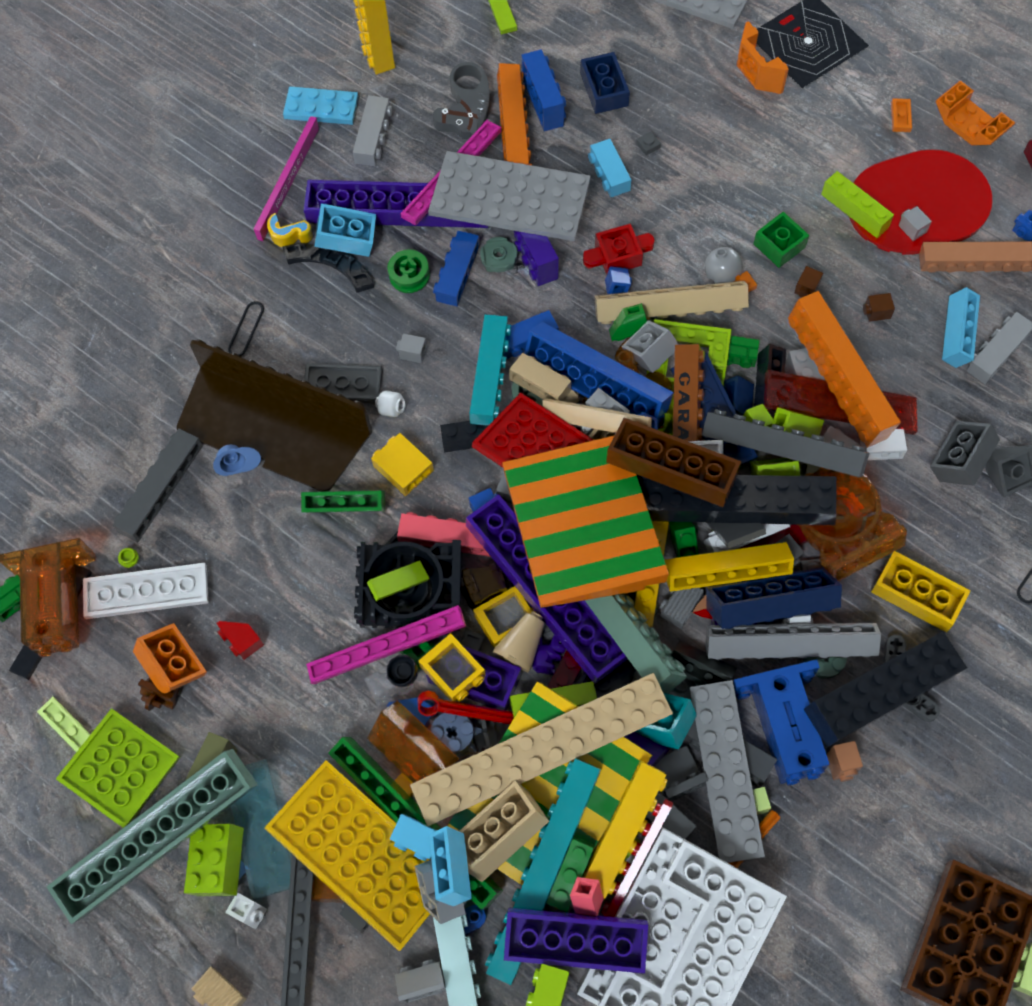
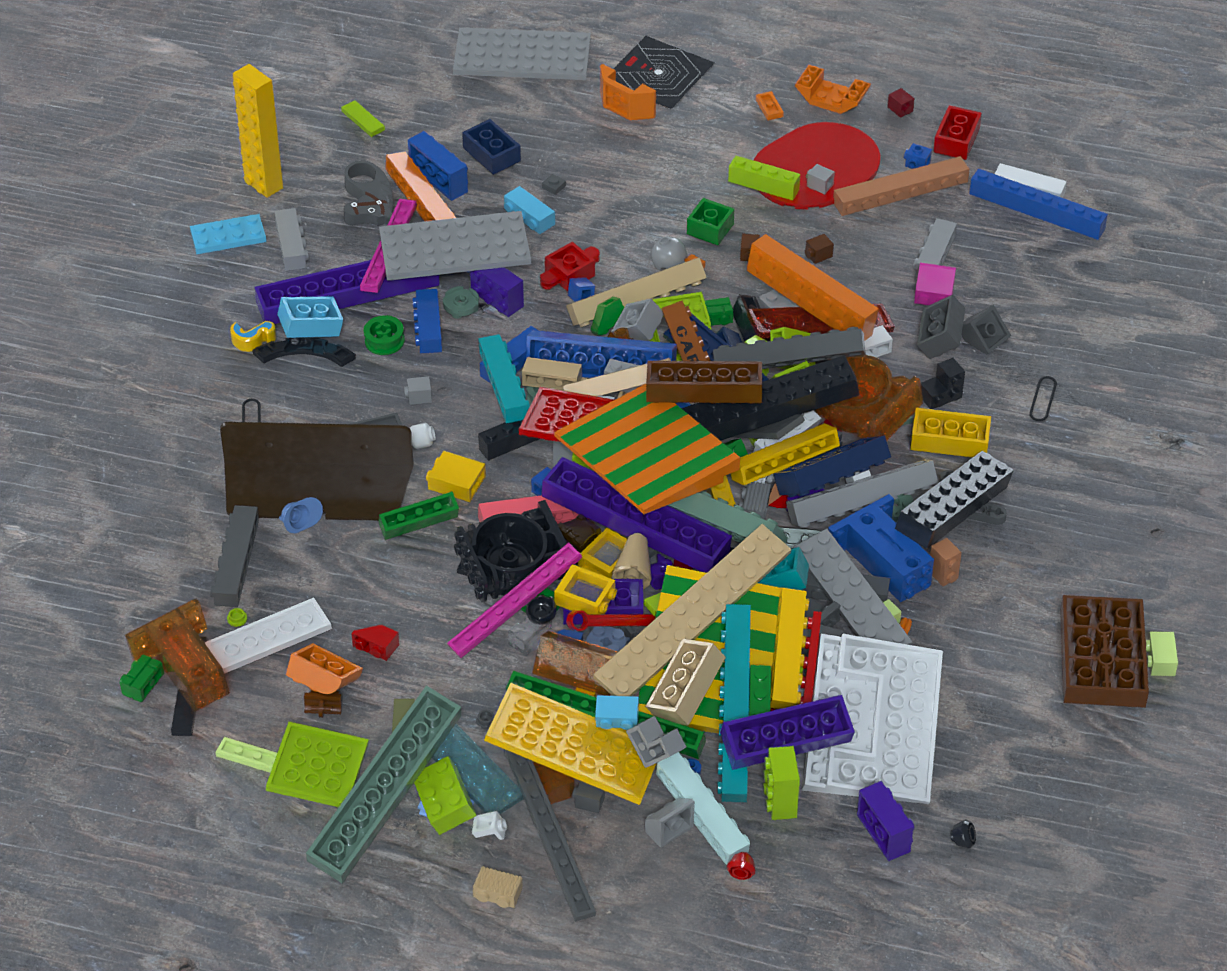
camera: 25 degrees left, 20 degrees down
(286, 177) = (228, 296): dark pink tile -> none
(301, 767) = (483, 716): none -> dark grey plate
(397, 580) = (503, 547): lime tile -> none
(450, 866) = (659, 707): medium azure brick -> none
(586, 896) = (780, 696): coral brick -> none
(937, 528) = (946, 385): none -> black brick
(961, 327) = (895, 243): medium azure brick -> none
(980, 396) = (934, 283): none -> dark pink slope

